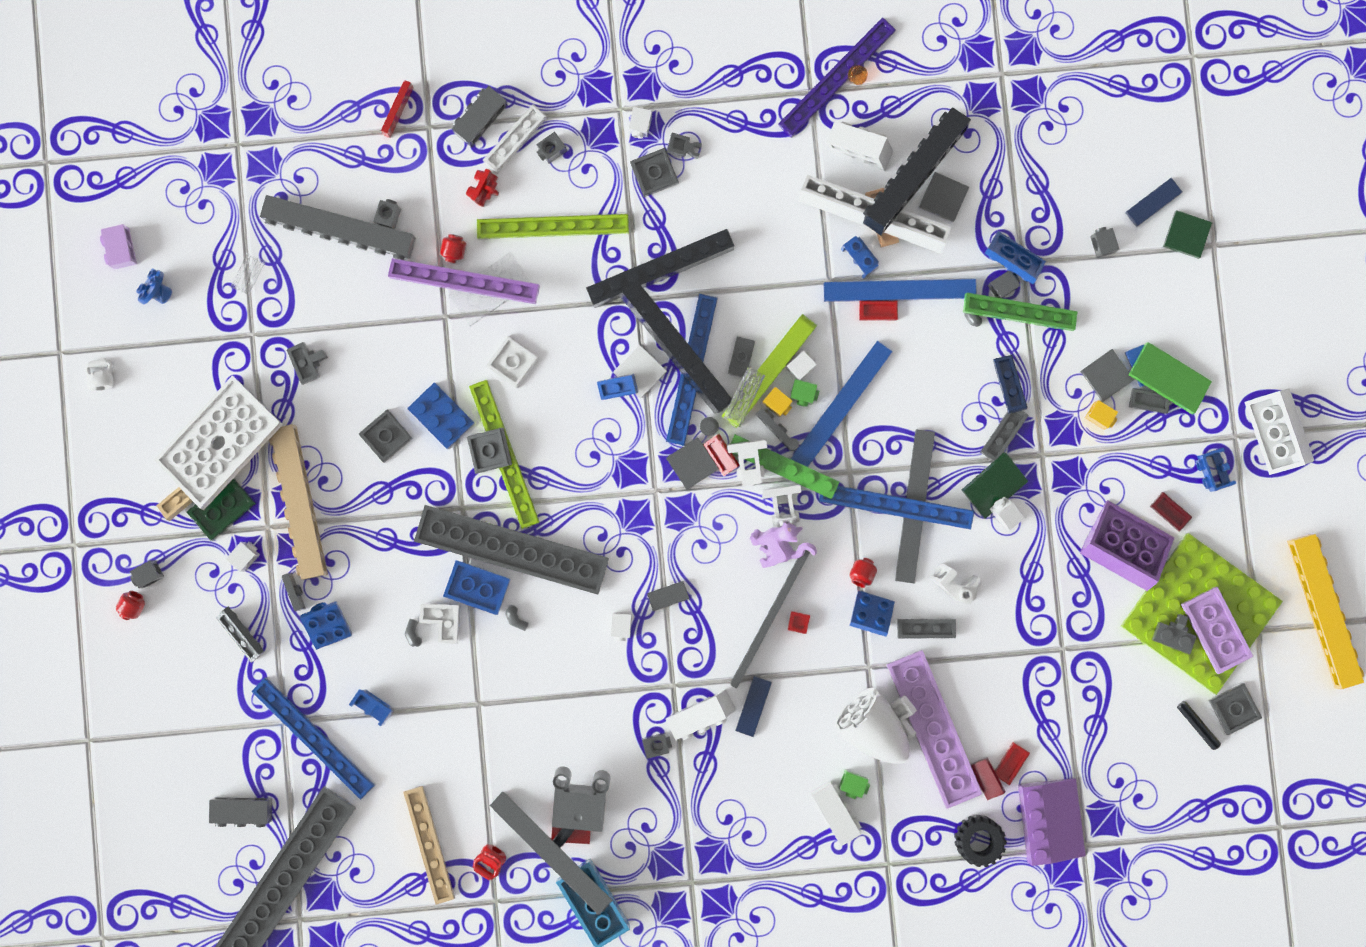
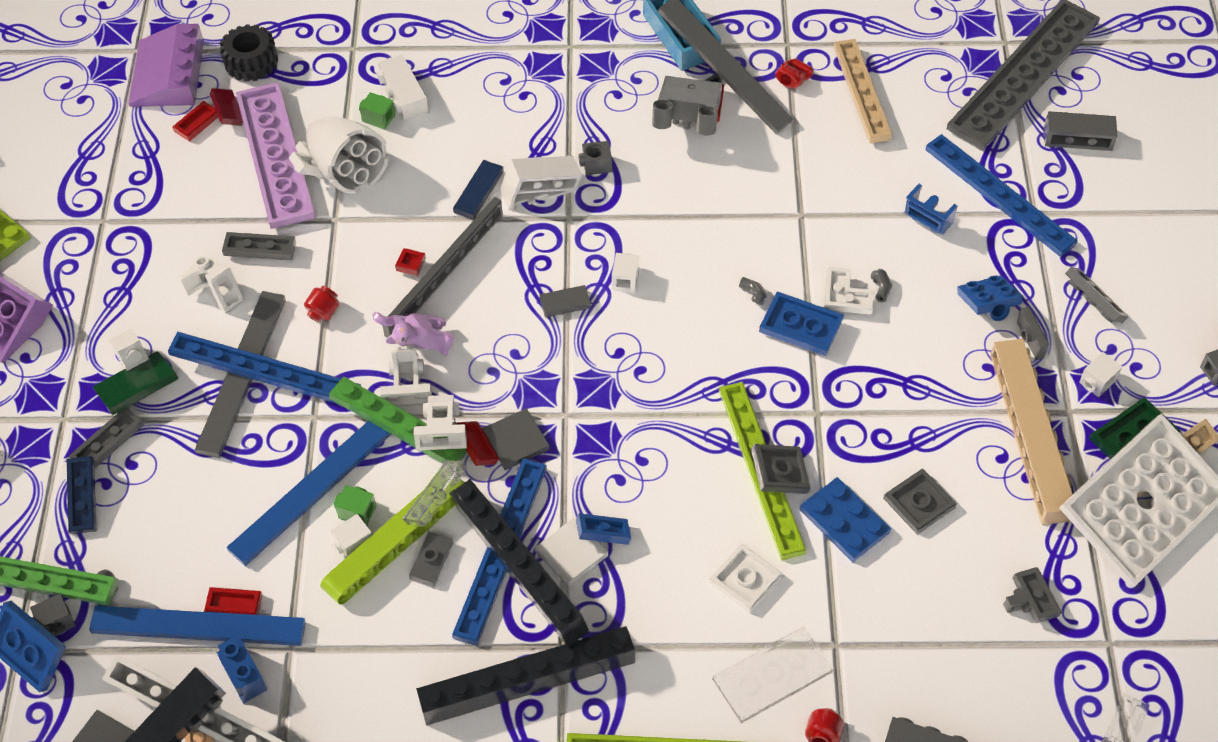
camera: 175 degrees left, 30 degrees down
(464, 281) = (809, 677): medium lavender plate -> none
(511, 549) = (758, 360): dark grey plate -> none
(709, 426) = (487, 478): dark grey plate -> none
(777, 429) = (397, 464): dark grey plate -> none
(778, 402) = (391, 495): yellow brick -> none
(872, 613) = (320, 260): blue plate -> none

